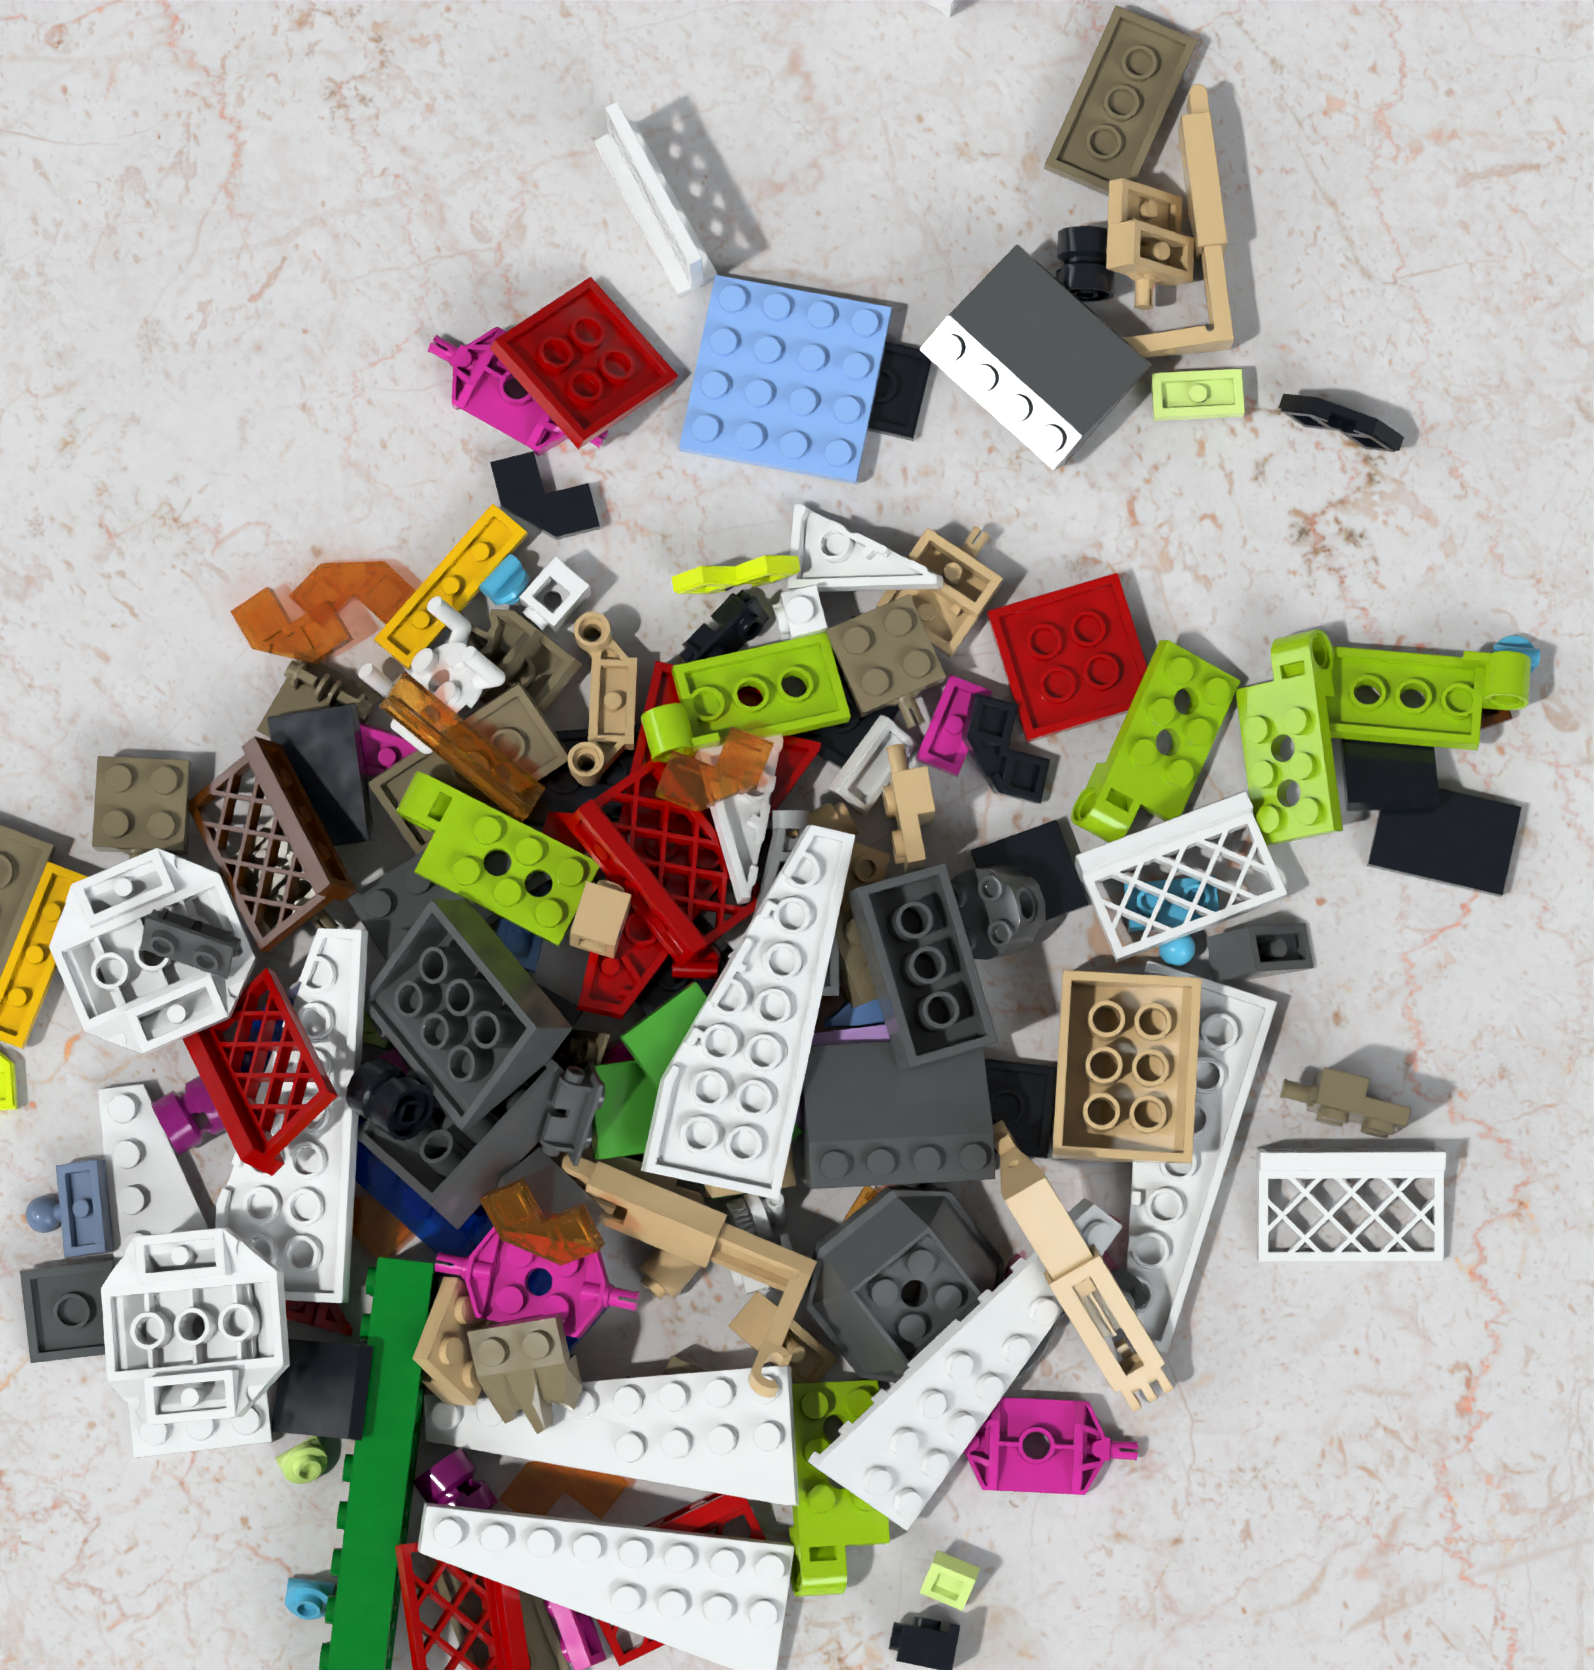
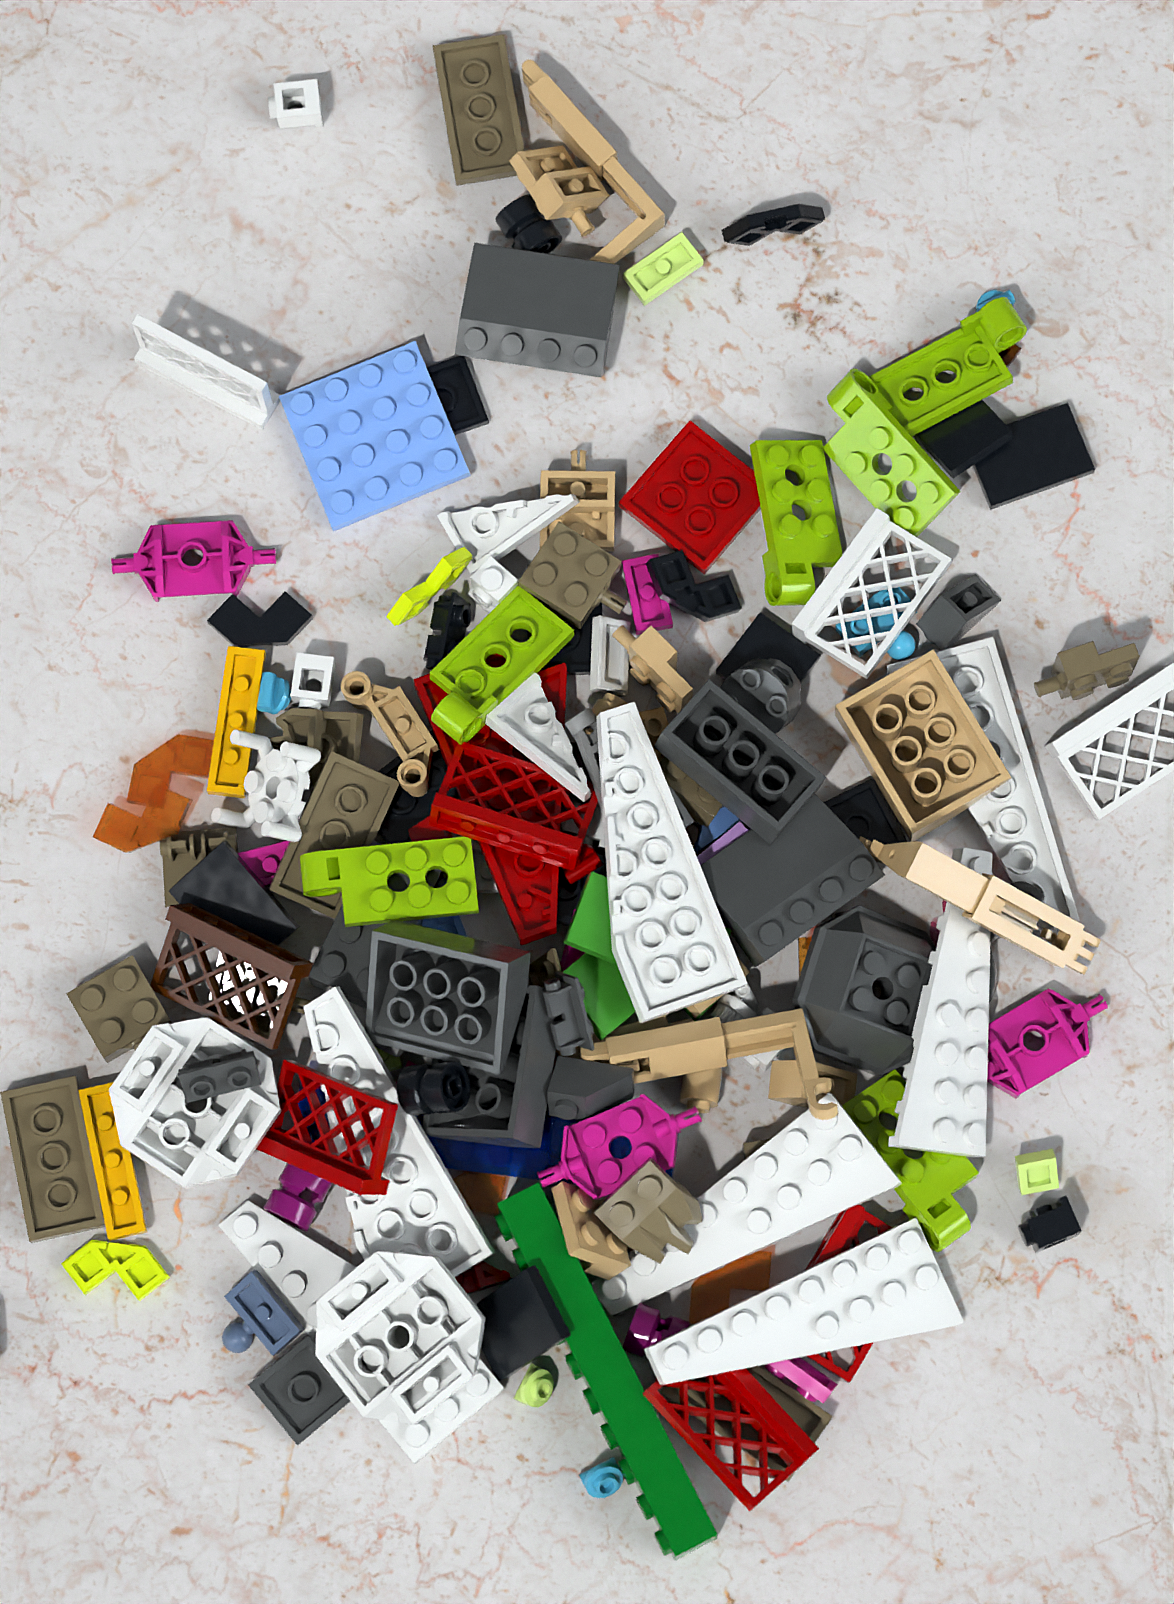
camera: 30 degrees left, 5 degrees down
(462, 747) = (321, 817): clear orange tile -> none
(522, 1224) = (584, 1112): clear orange tile -> none
(584, 362) = (228, 509): red plate -> none
(600, 918) = (497, 870): tan brick -> none
(702, 785) = (505, 737): clear orange tile -> none

